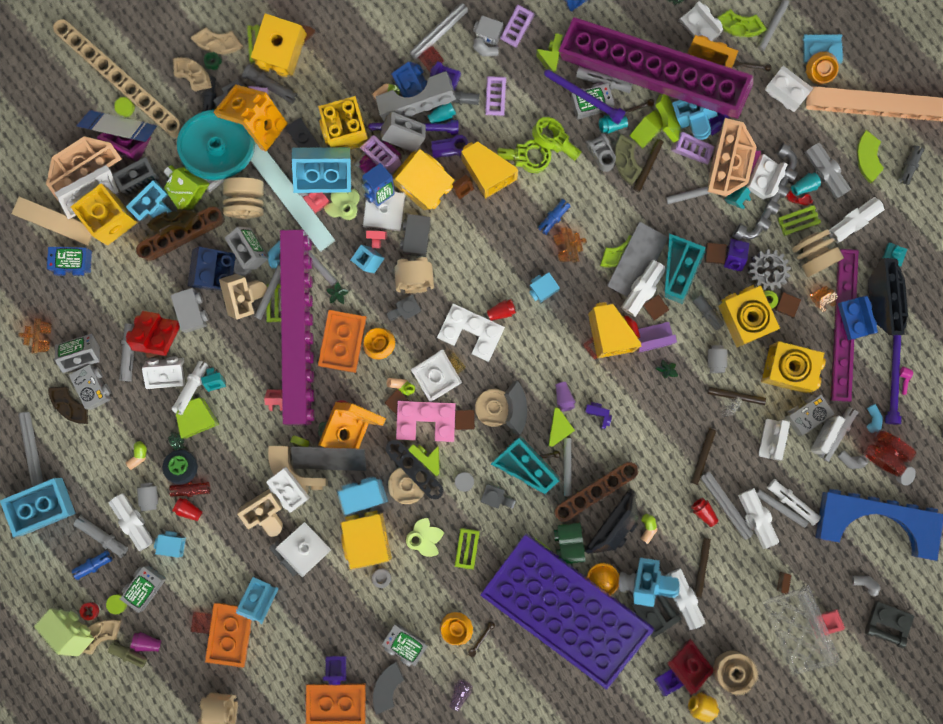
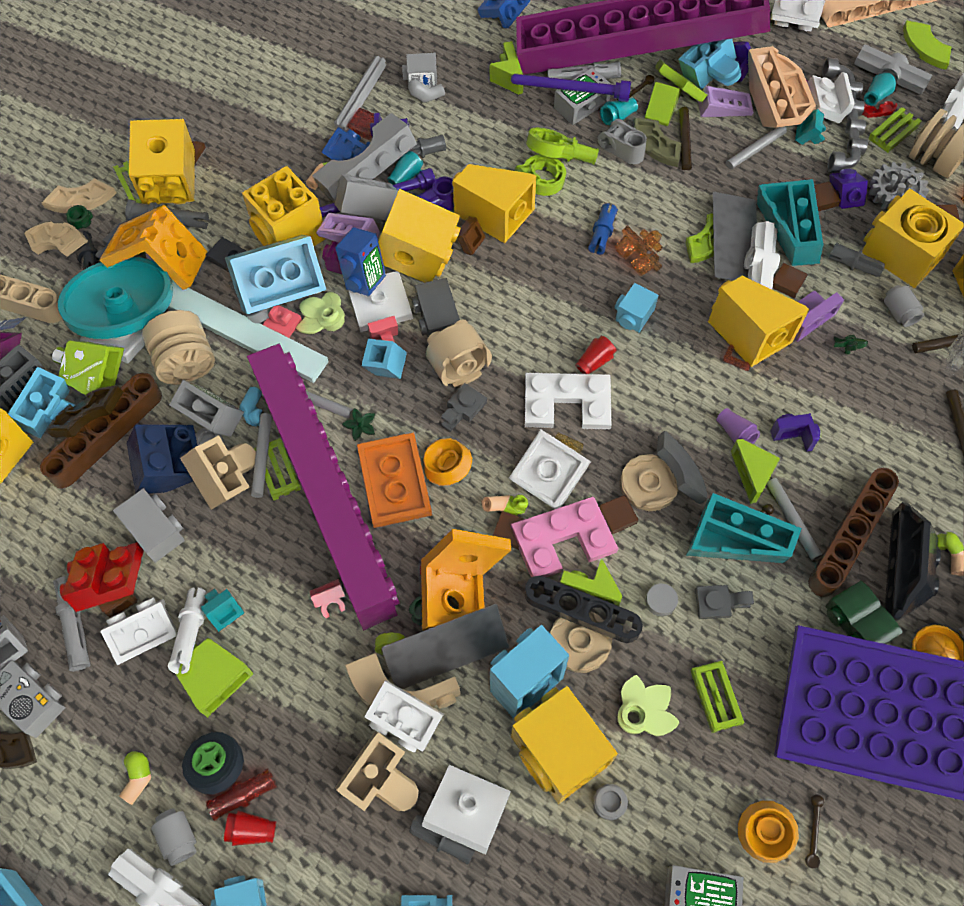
camera: 30 degrees left, 20 degrees down
(176, 440) = (193, 723): clear green plate -> none
(500, 80) = (456, 115): lavender slope -> none
(519, 9) = (454, 42): lavender slope -> none

